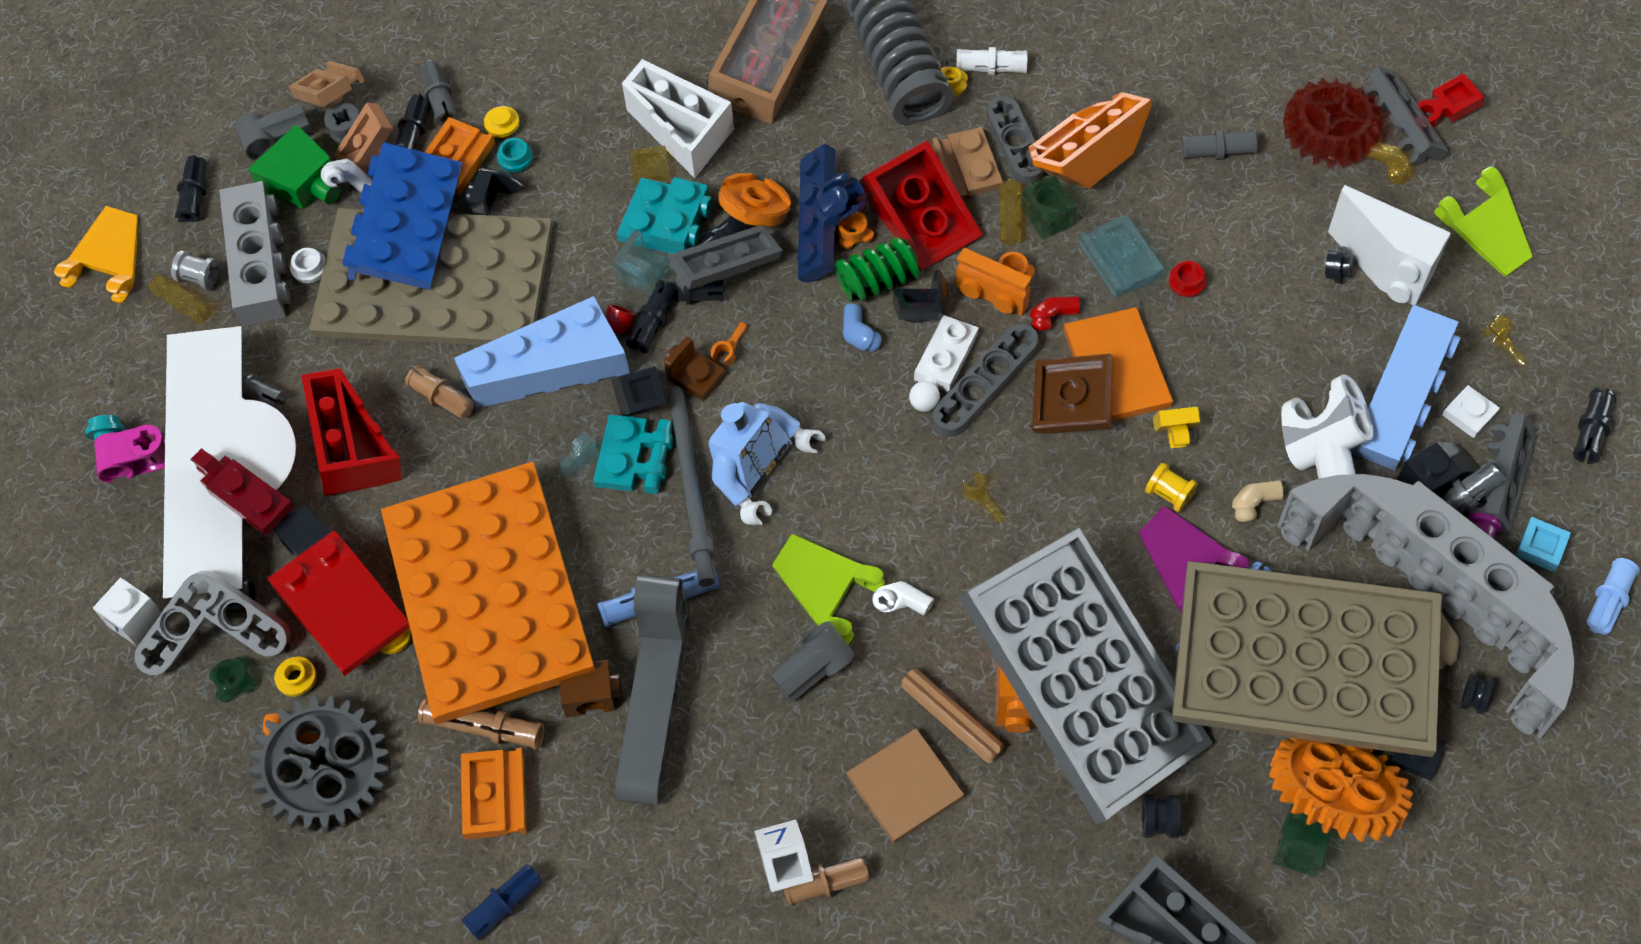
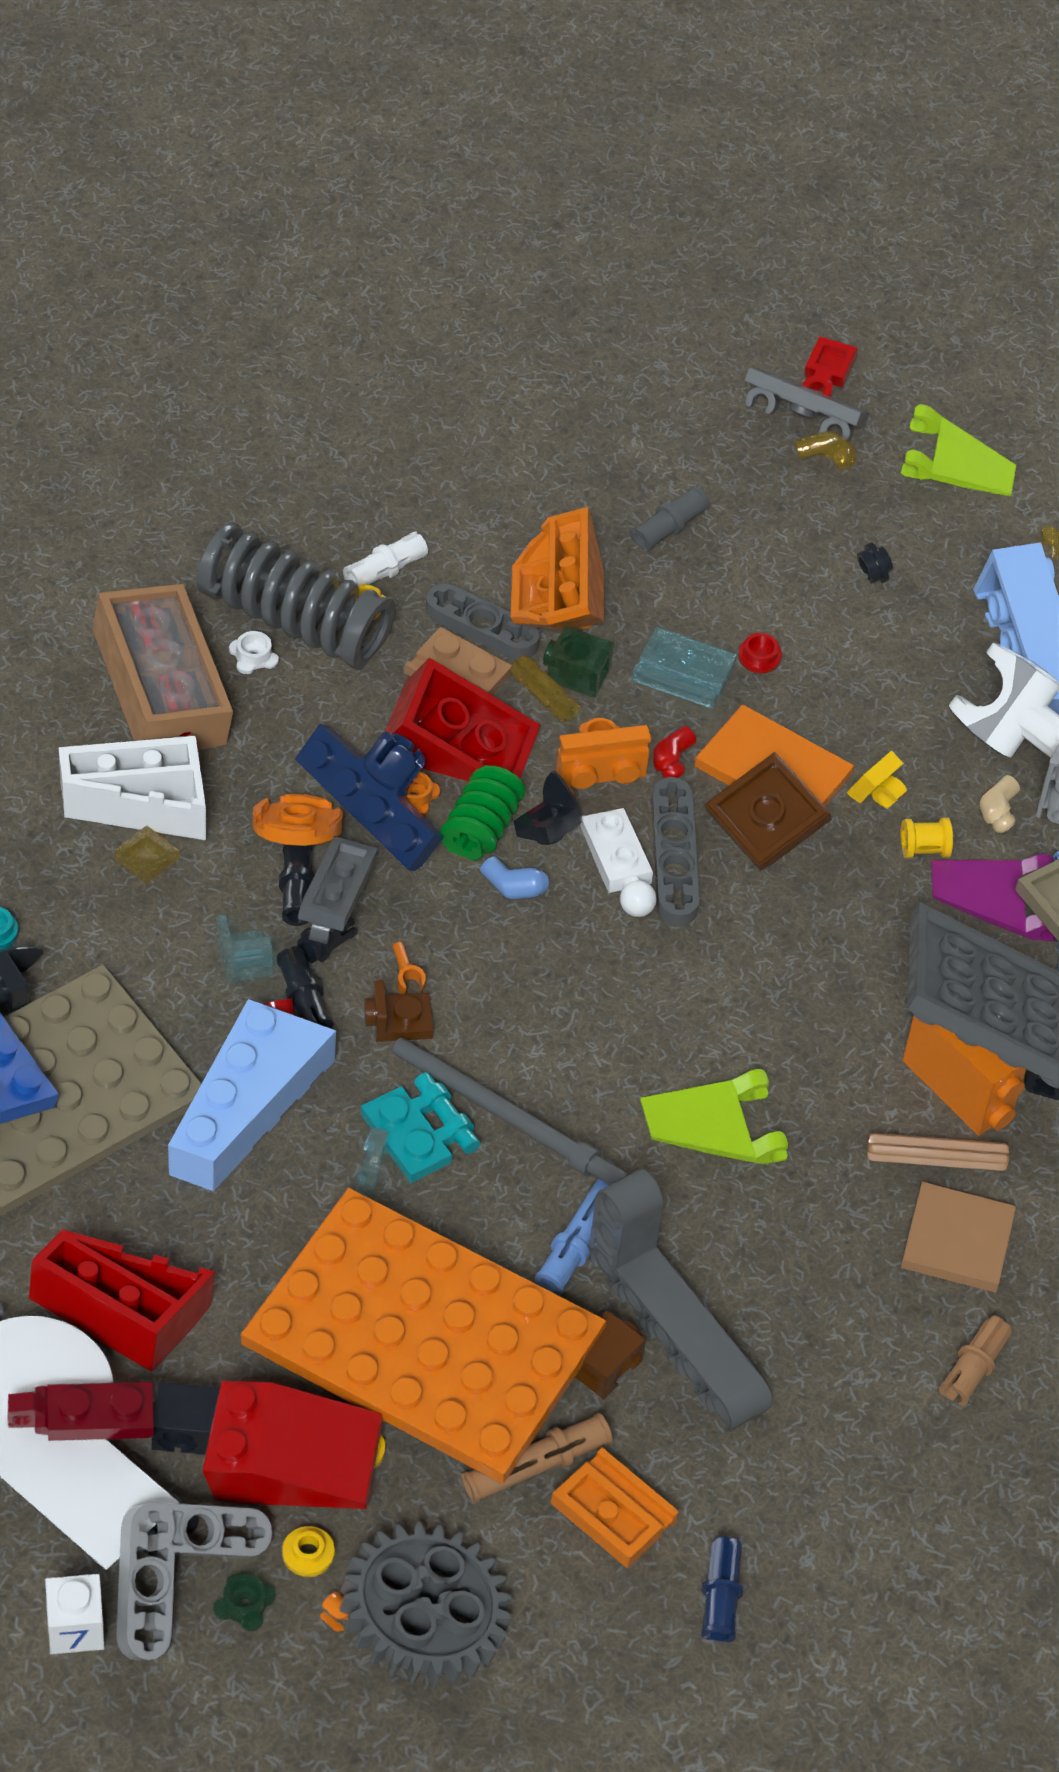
camera: 50 degrees left, 10 degrees down
(439, 392) = (165, 1197): medium nougat axle -> none
(638, 390) = (377, 1060): black brick -> none
(667, 214) = (216, 883): teal plate -> none
(749, 448) = (538, 1047): light blue torso -> none
(784, 855) = (930, 1359): white brick -> none
(820, 655) = (783, 1178): dark grey piece -> none
(847, 64) = (253, 642): none -> white plate
(901, 595) = (793, 1082): white arm -> none
(979, 494) = (769, 953): clear yellow hand -> none
(1348, 137) = (749, 442): clear red gear -> none
(1388, 244) = (913, 517): white slope -> none

